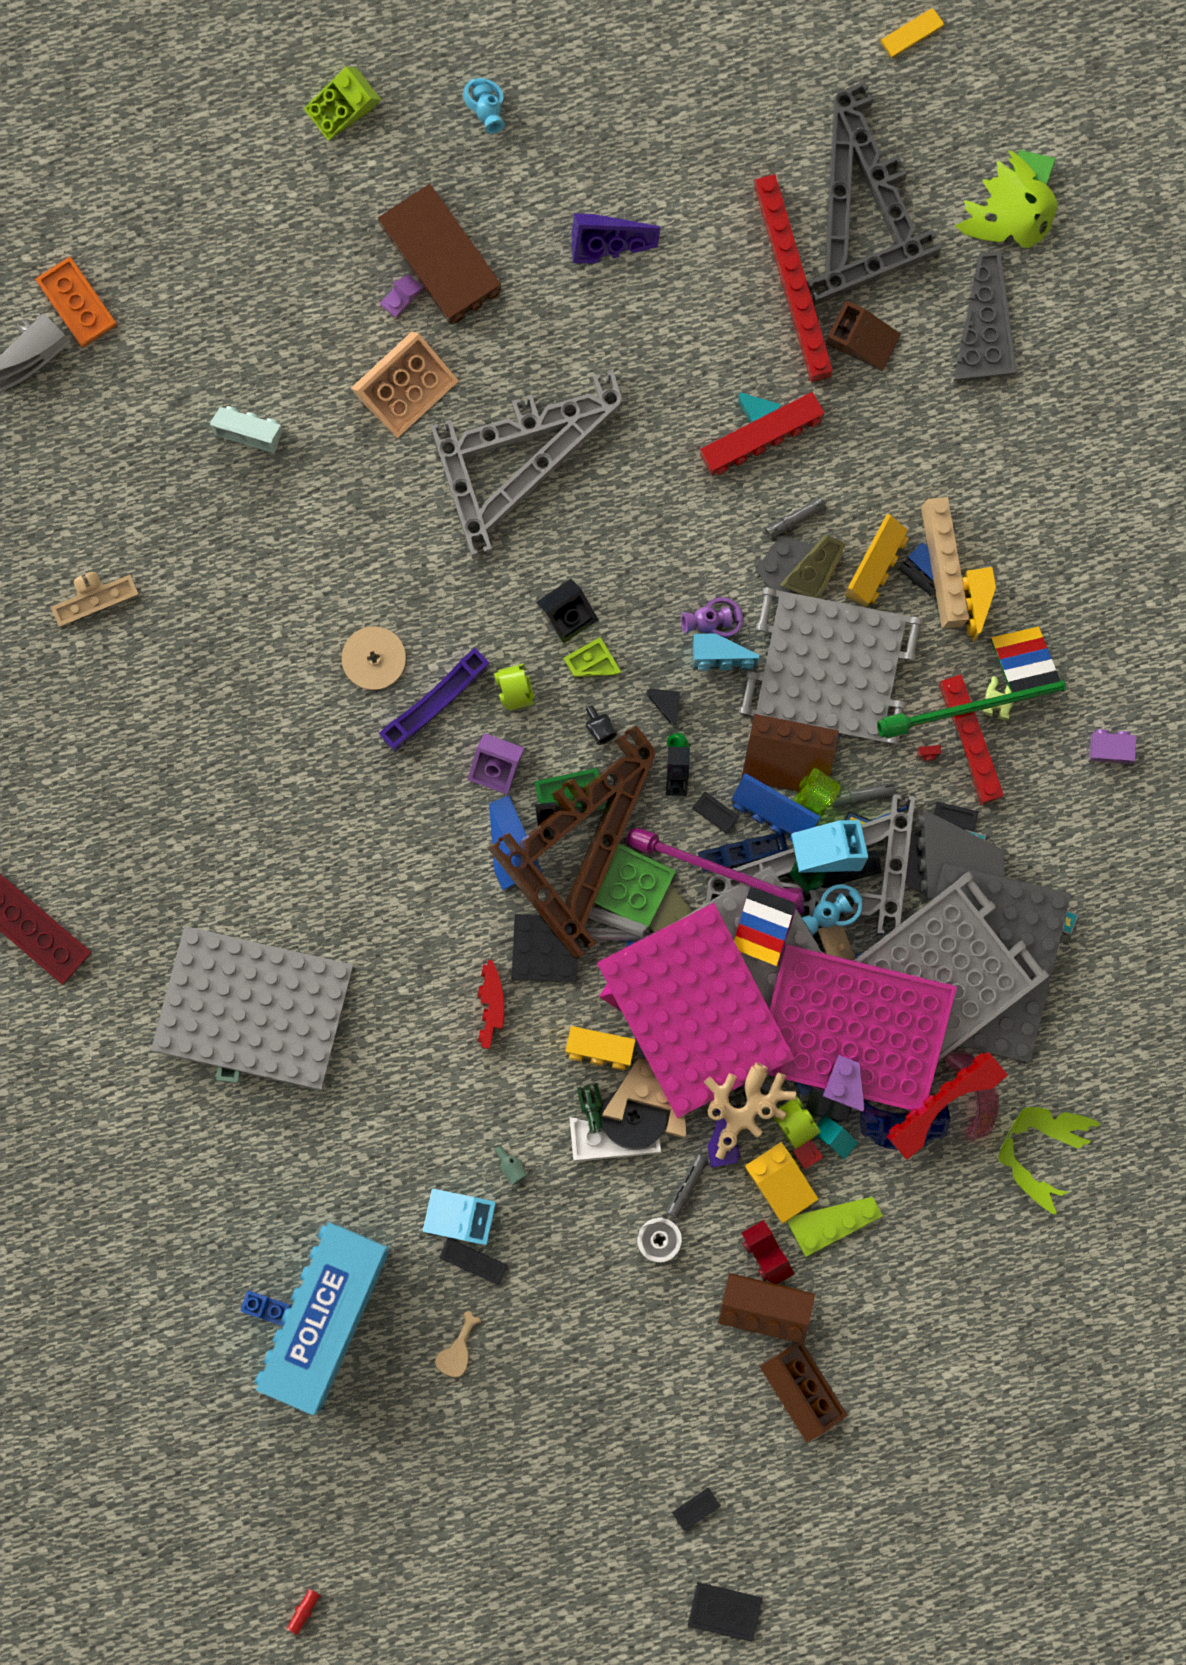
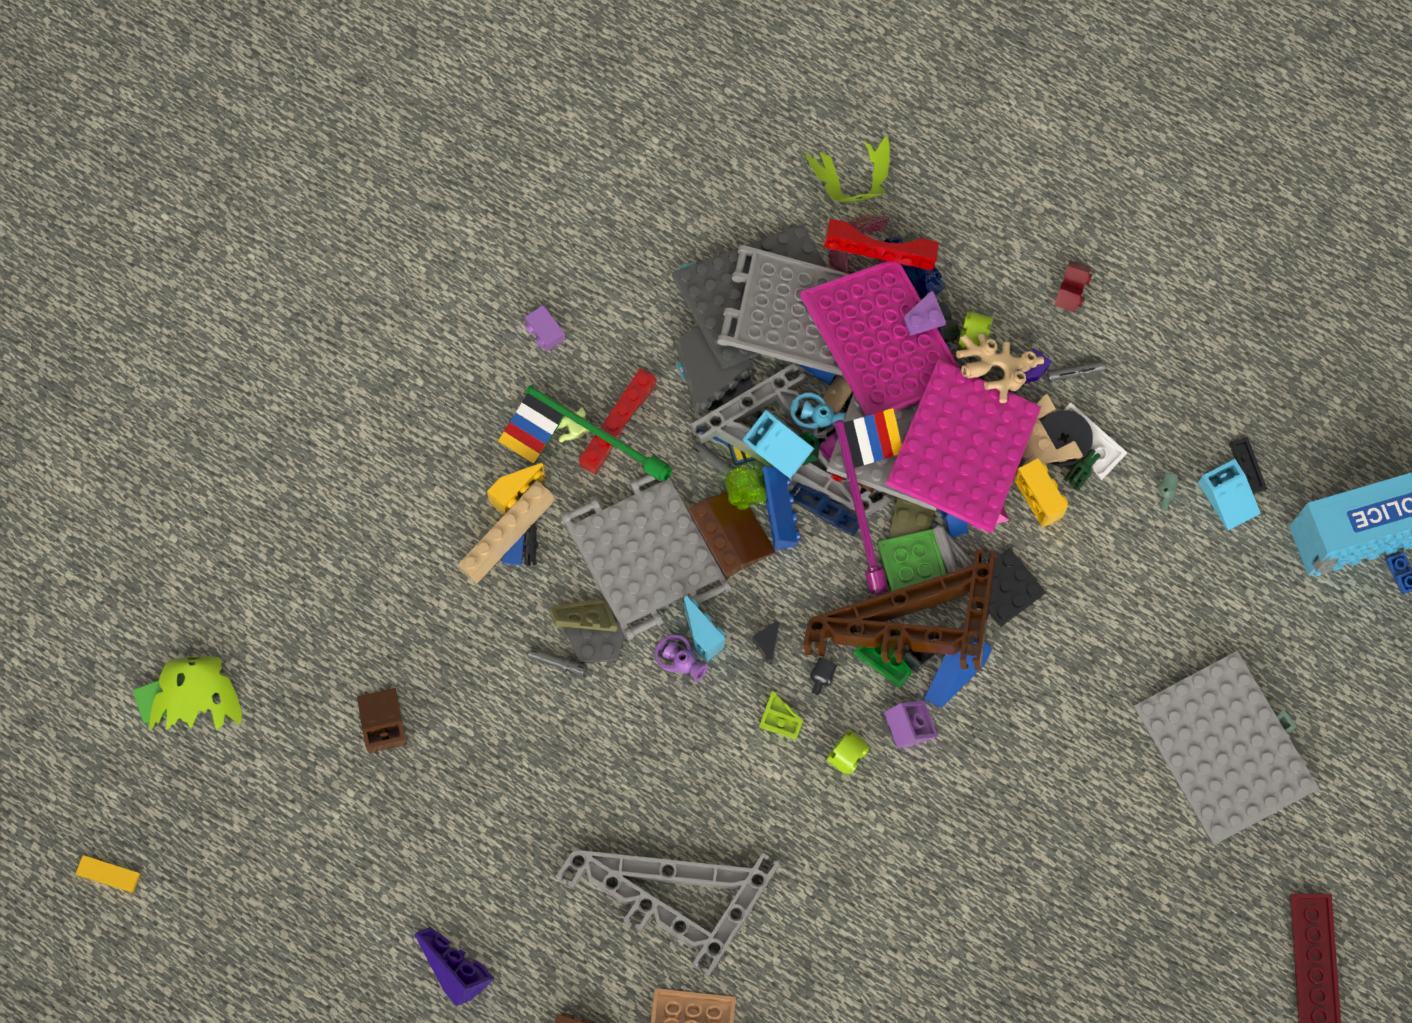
camera: 130 degrees left, 10 degrees down
(388, 666) = (911, 890): tan piece -> none
(448, 689) = (877, 799): dark purple arch -> none
(454, 1360) = (1317, 427): tan piece -> none
(492, 995) = (1070, 593): red slope -> none
(567, 610) = (759, 765): black slope -> none
(648, 1233) = (1120, 365): white brick -> none
(677, 740) = (788, 612): green tile -> none
(677, 771) = (808, 595): black slope -> none
(696, 1509) = (1265, 209): black tile -> none
(715, 812) = (813, 550): black tile -> none
(724, 1611) = (1308, 145): black tile -> none
(756, 407) = (499, 751): teal slope -> none
(762, 433) = (514, 733): red brick -> none
(766, 1308) = (1108, 258): reddish brown slope -> none
(781, 1182) = (1020, 314): yellow slope -> none
(793, 278) = (376, 805): red brick -> none
(803, 1391) = (1135, 200): reddish brown slope -> none
(807, 1154) = (987, 309): red plate -> none
(827, 1225) = (1020, 267): lime wing -> none
(836, 1137) = (959, 304): teal slope -> none
(846, 127) = (243, 849): dark grey piece -> none
(876, 562) = (544, 579): yellow slope -> none
(929, 753) = (650, 442): red plate -> none
(956, 815) = (678, 393): black tile -> none
(987, 334) = (309, 635): dark grey wing -> none

